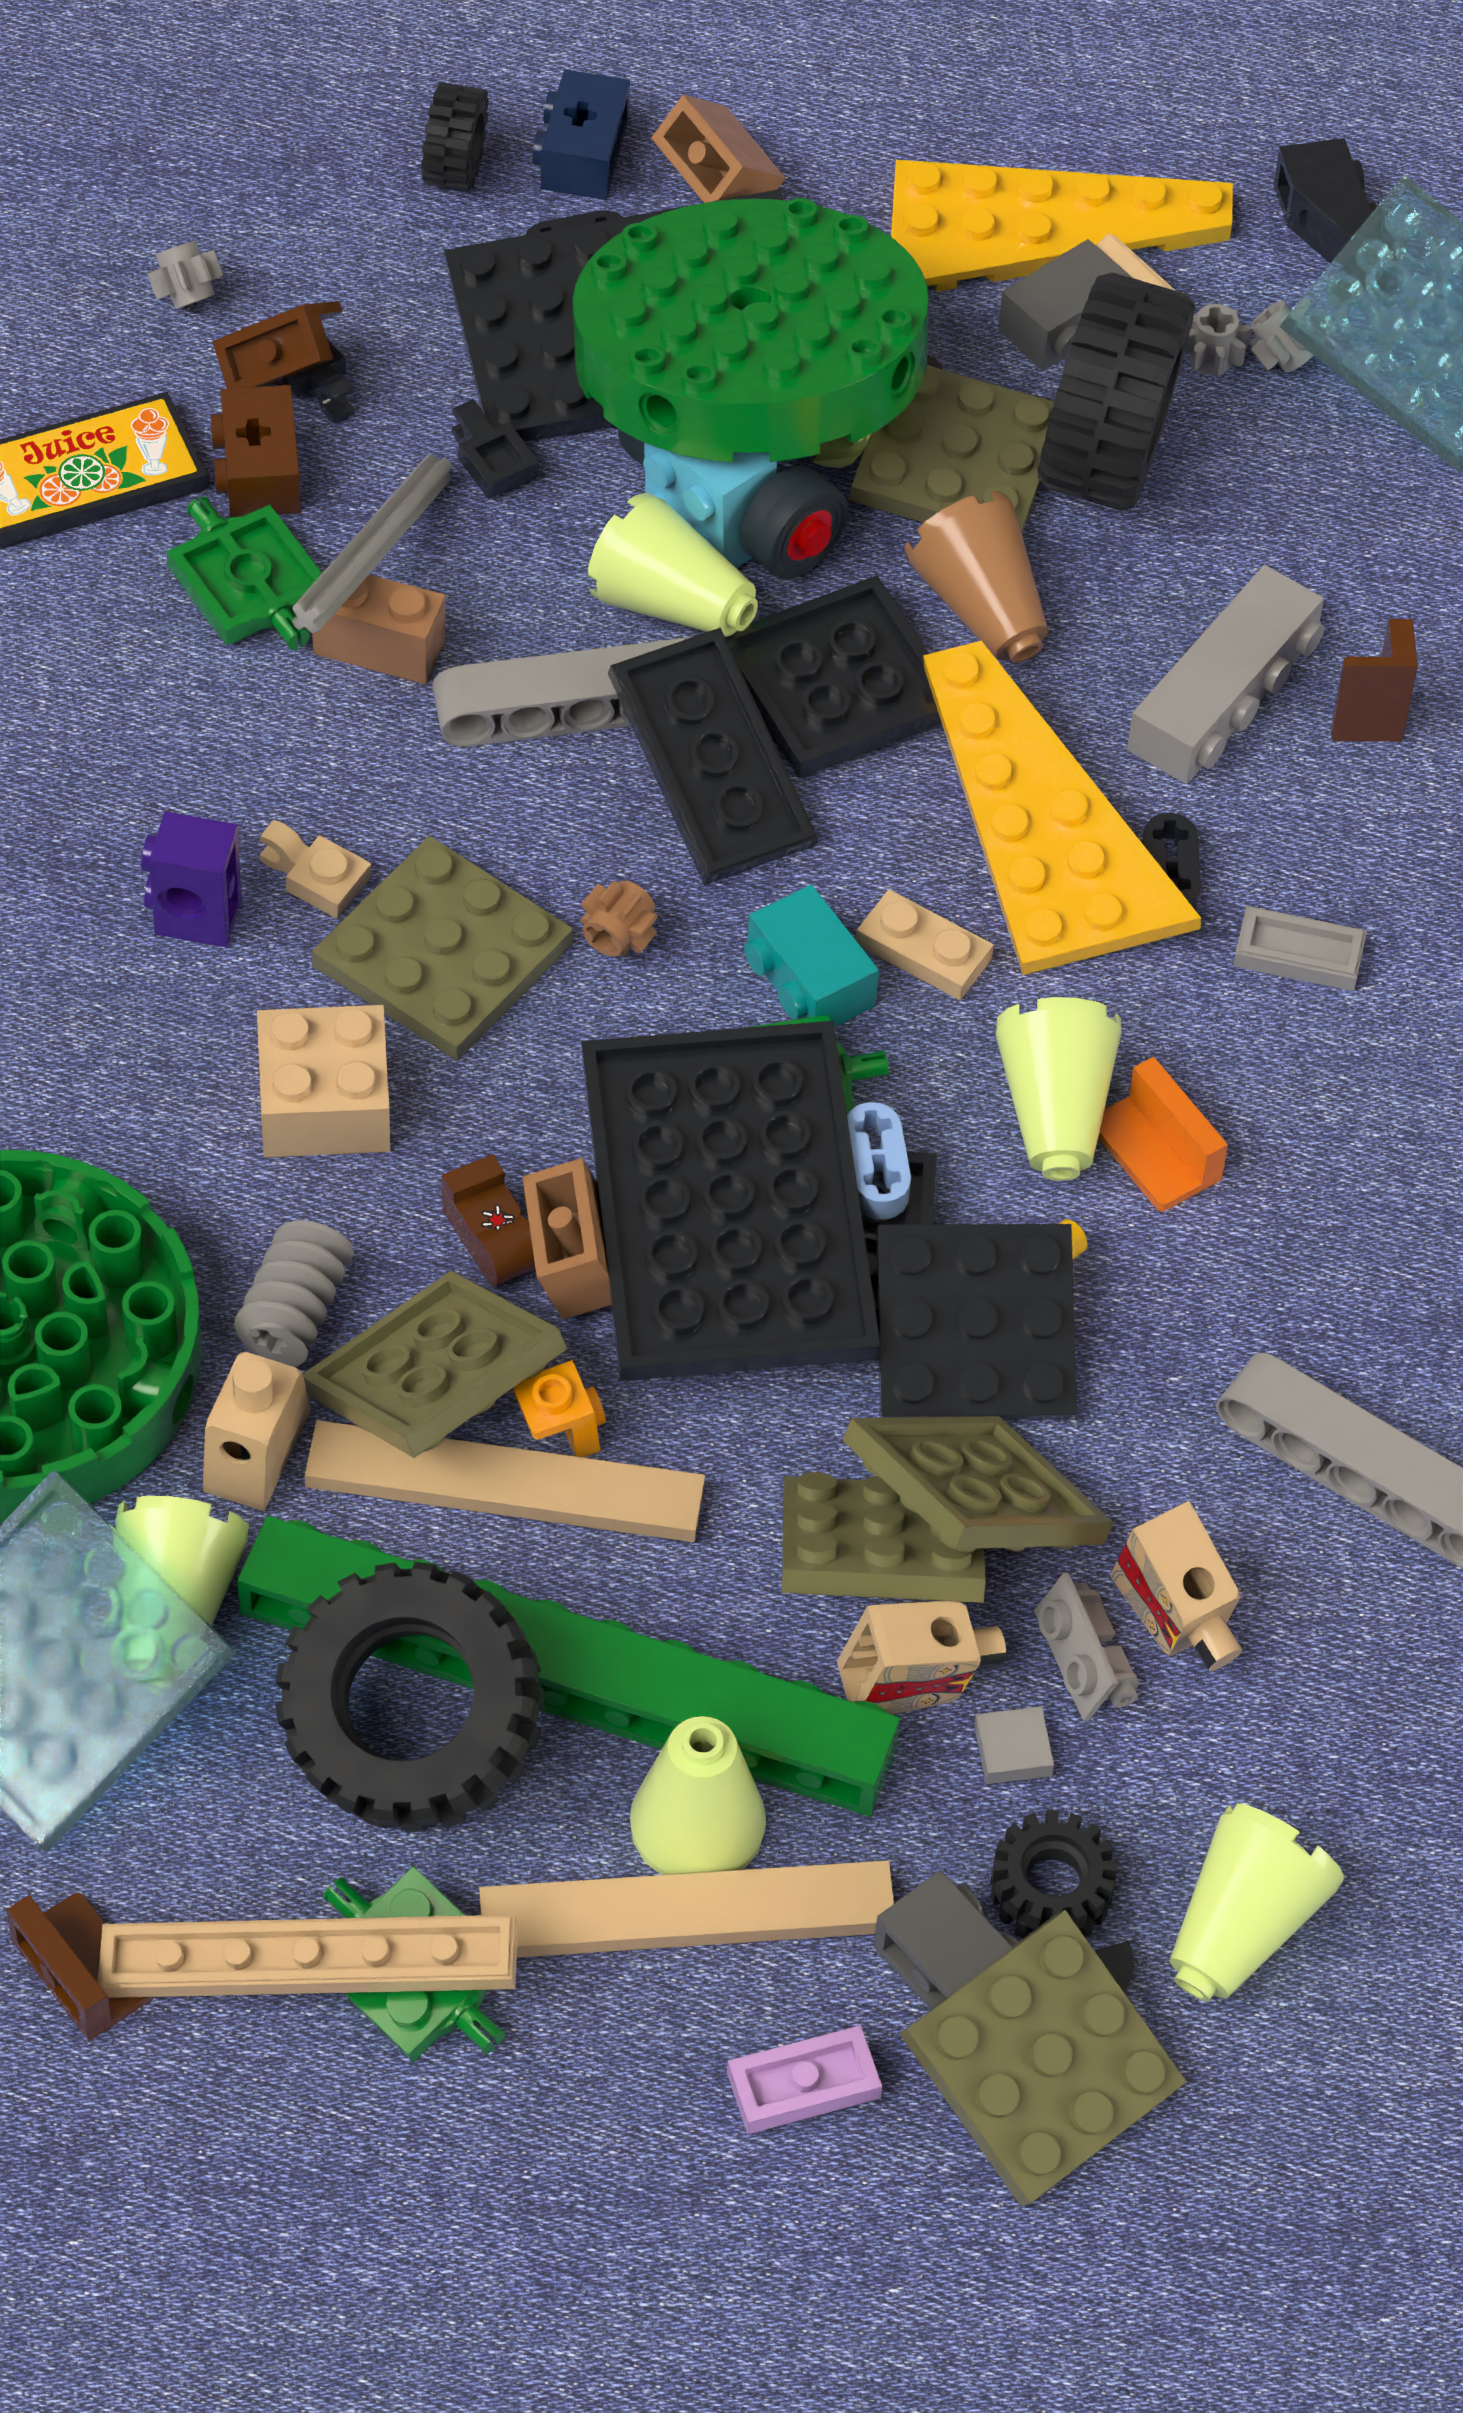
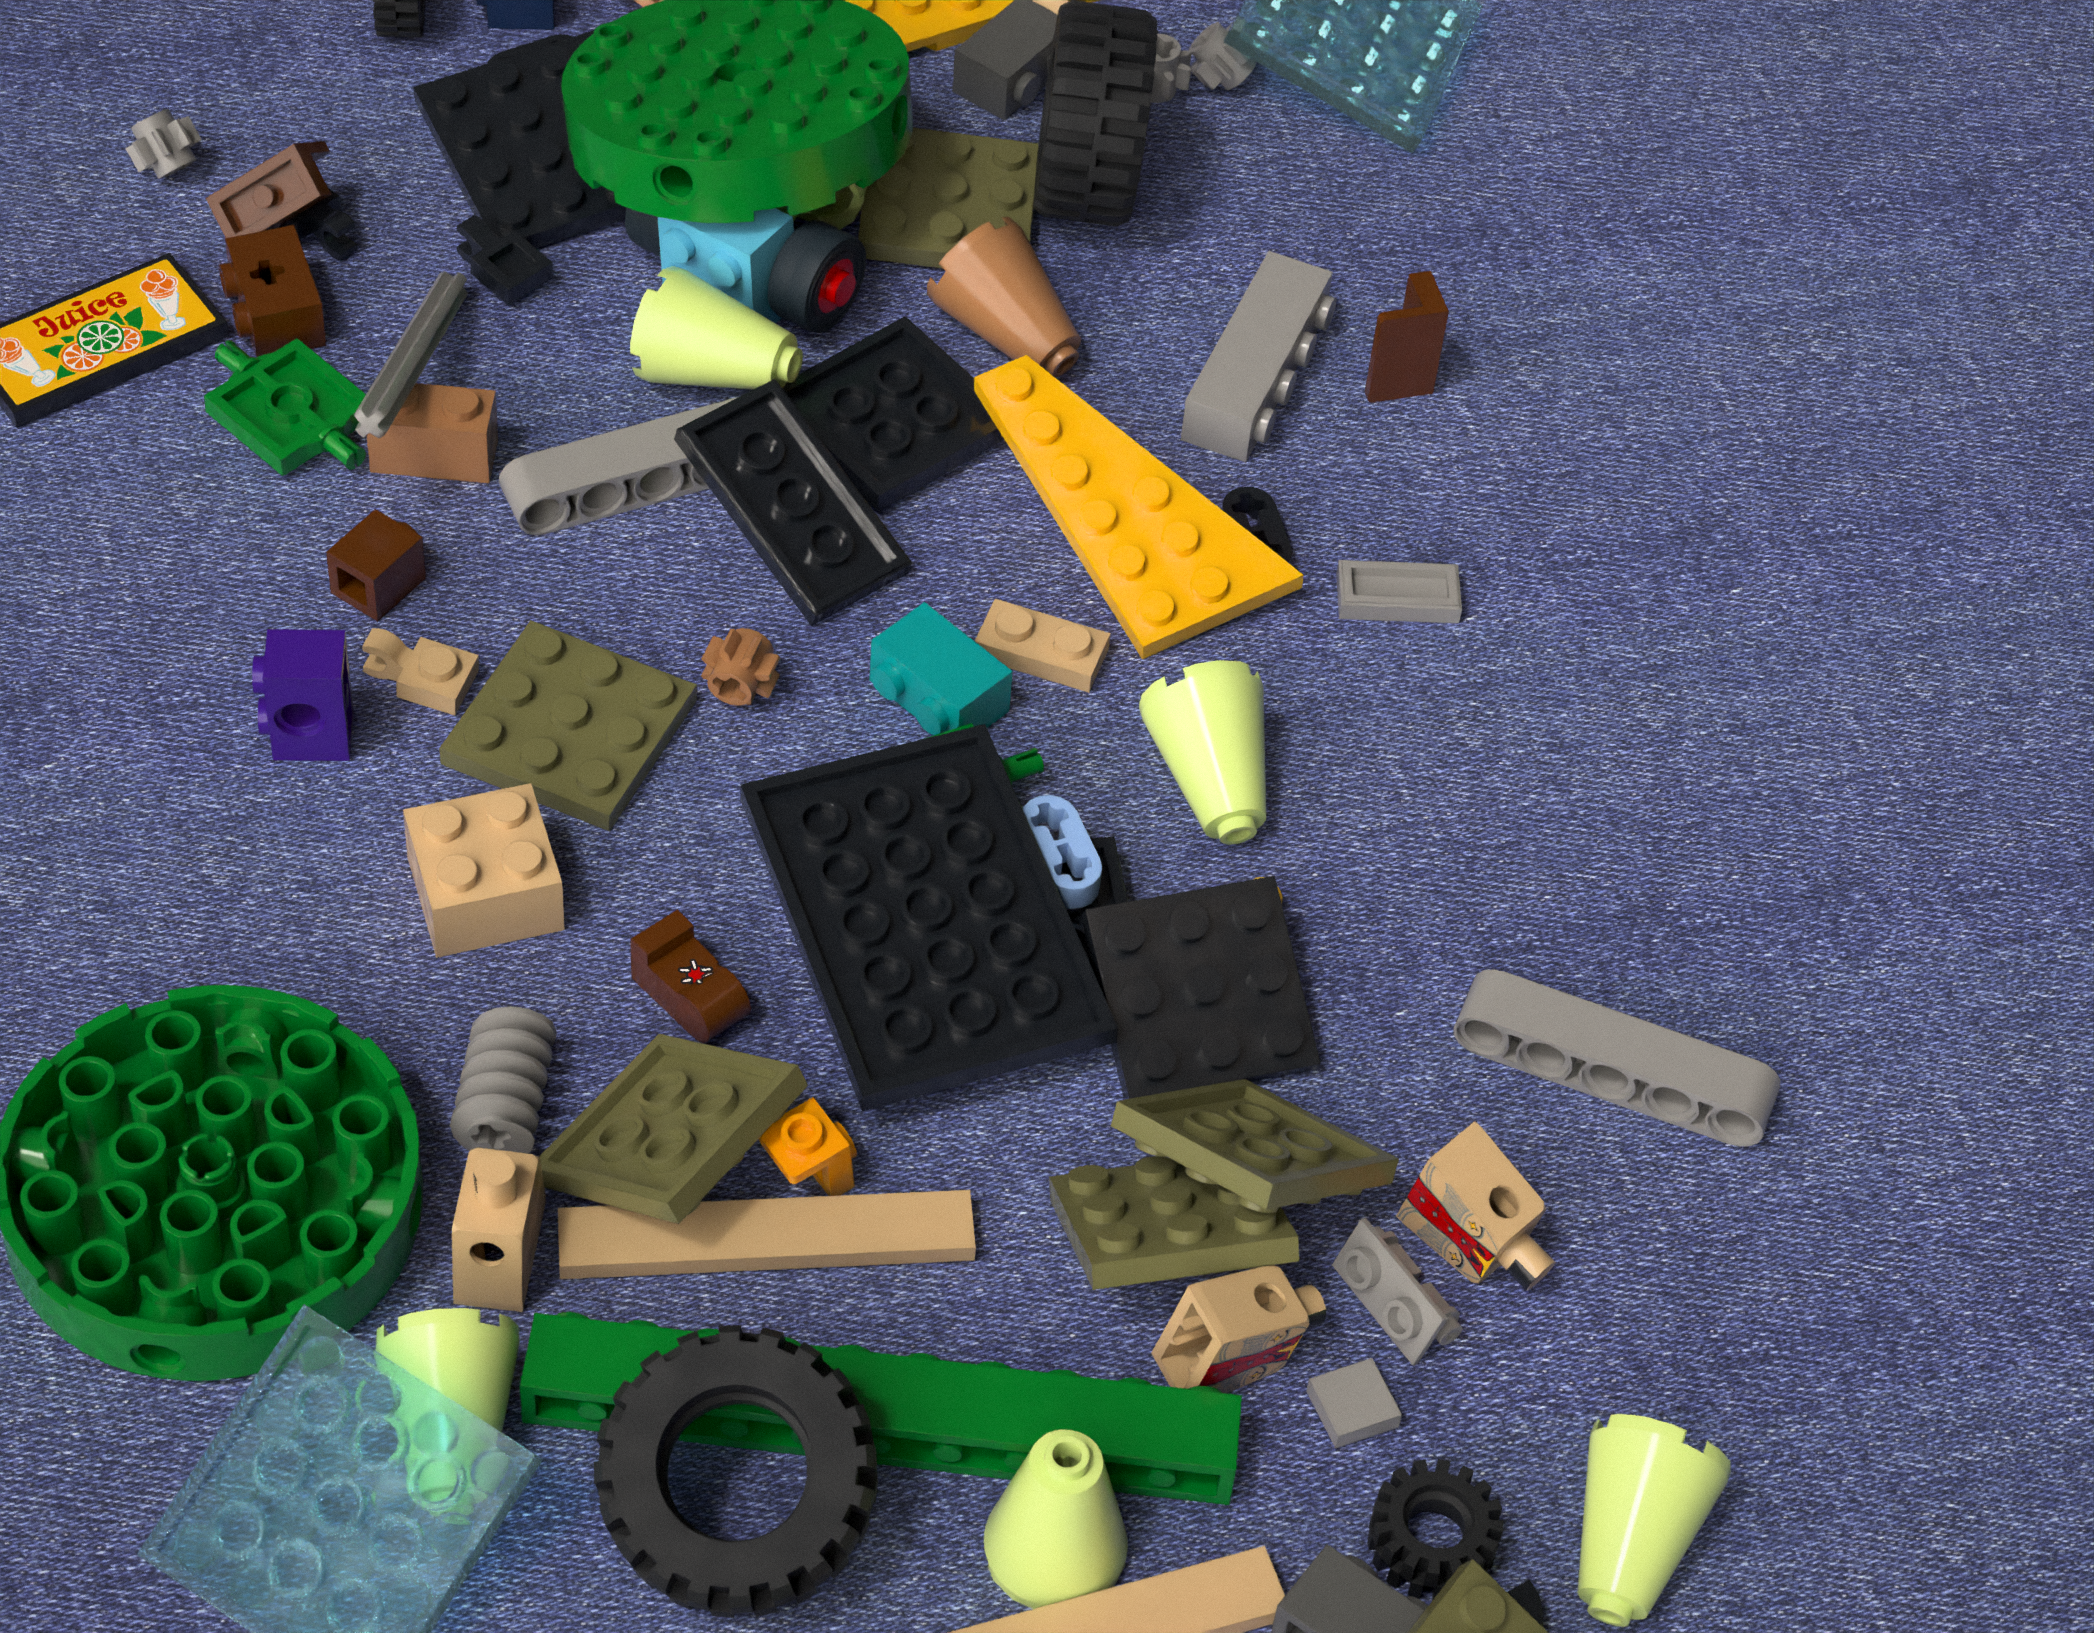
camera: 15 degrees left, 5 degrees down
(294, 753) = (376, 564): none -> reddish brown brick
(568, 1237) = (775, 978): medium nougat brick -> none
(1162, 1138) = (1326, 785): orange panel -> none

